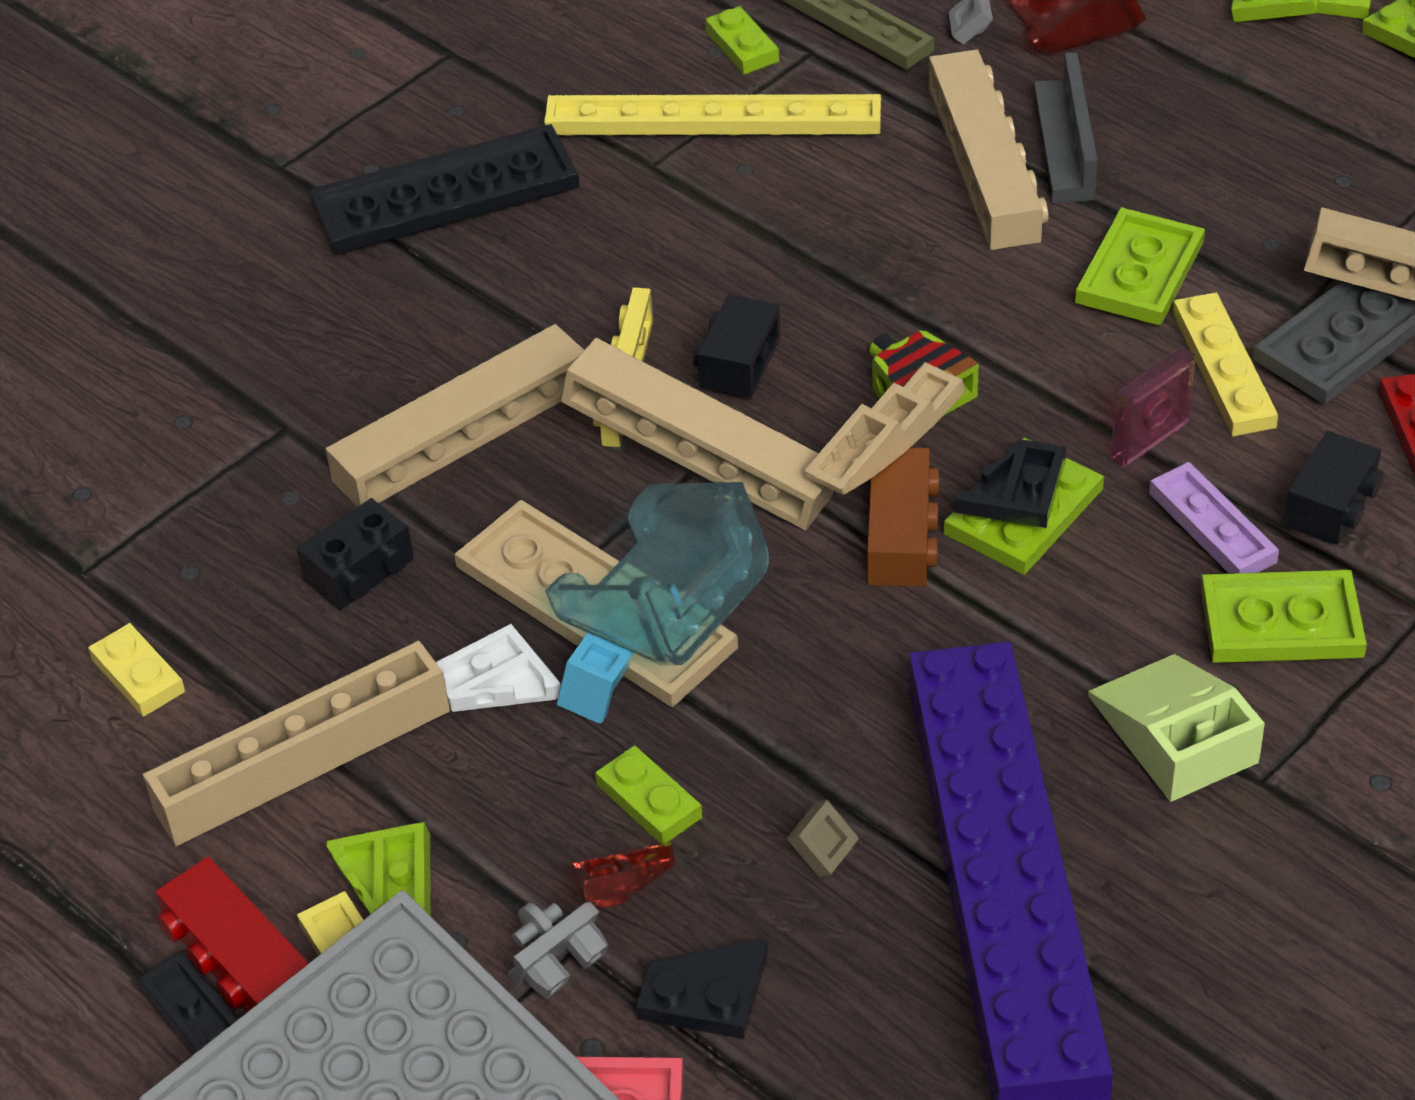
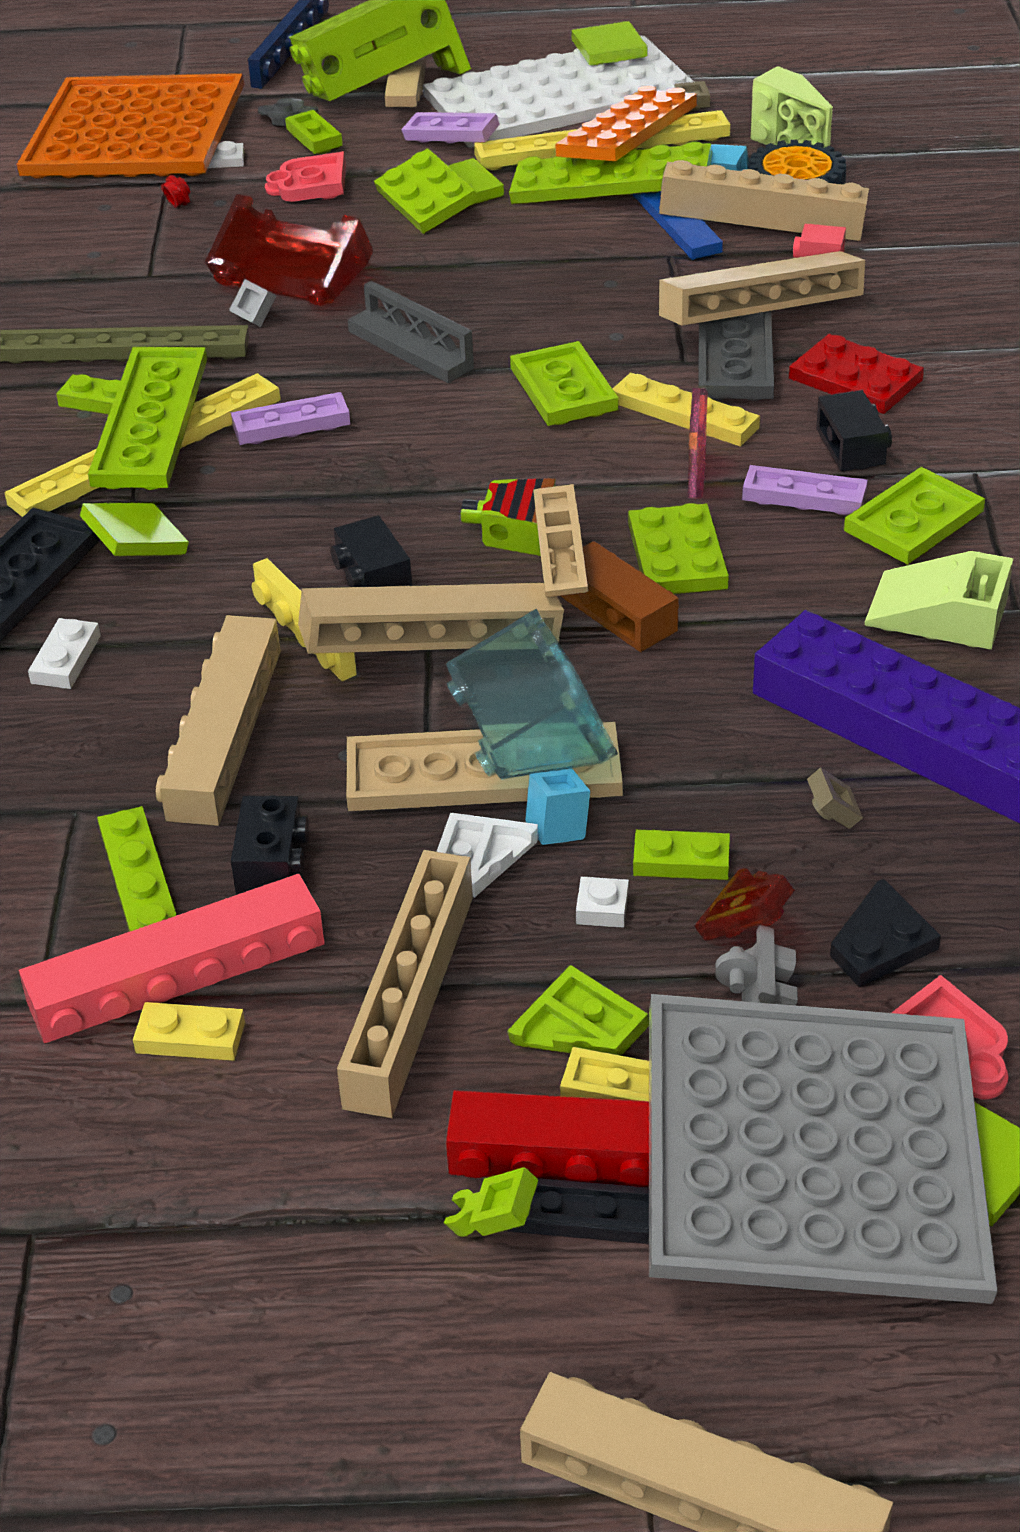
camera: 45 degrees left, 5 degrees down
(135, 969) = (499, 1205): none -> lime plate
(187, 601) = (171, 957): none -> coral brick
(249, 519) = (136, 868): none -> lime plate
(430, 278) = (64, 653): none -> white plate
(536, 789) = (602, 902): none -> white plate
(601, 193) = (134, 529): none -> lime tile
(727, 88) = (148, 418): none -> lime plate
(859, 158) = (290, 418): none -> lavender plate
(987, 150) = (372, 370): tan brick -> none
(1017, 486) = (680, 529): black wing -> none

